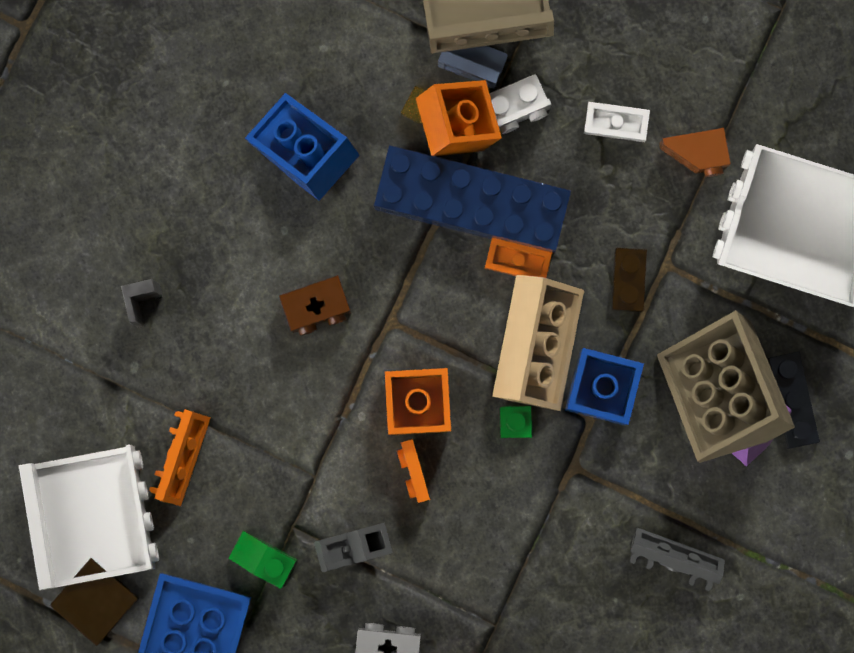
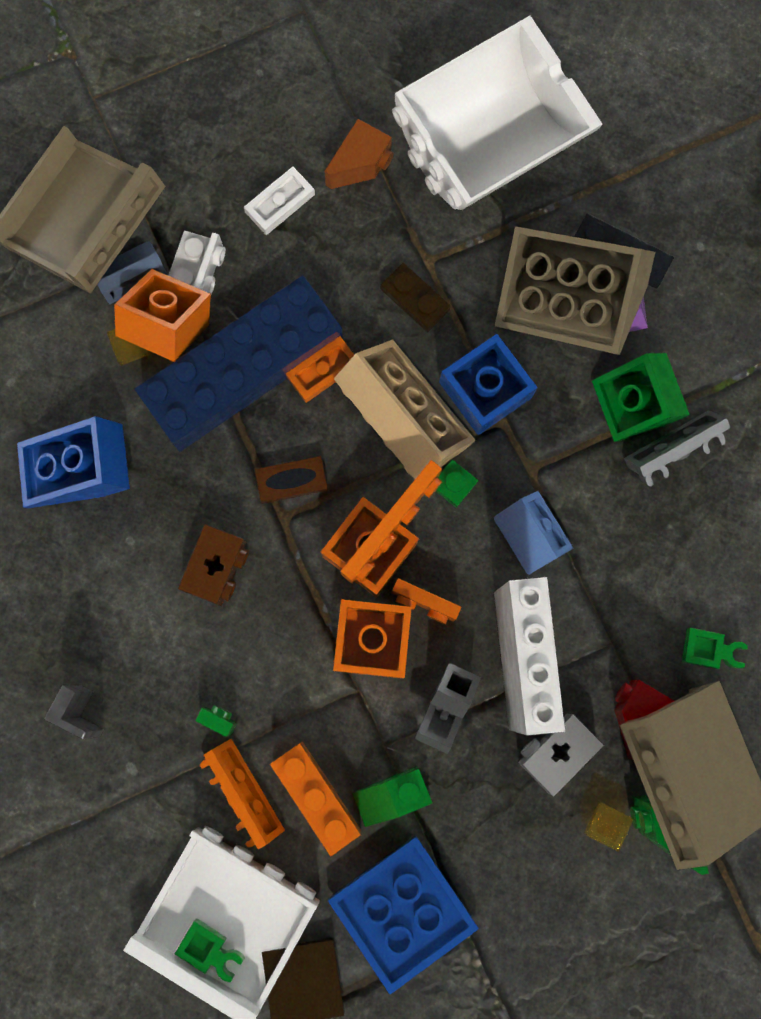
camera: 55 degrees left, 5 degrees down
(62, 516) = (204, 948): none -> green plate
(214, 397) = (217, 719): none -> green plate
(219, 508) = (316, 798): none -> orange brick
(356, 457) = (372, 639): none -> orange brick
(421, 305) = (291, 479): none -> reddish brown tile
(429, 573) = (529, 657): none -> white panel
(457, 404) = (383, 535): none -> orange plate
(527, 506) = (532, 532): none -> medium blue panel
(690, 502) = (640, 396): none -> green slope

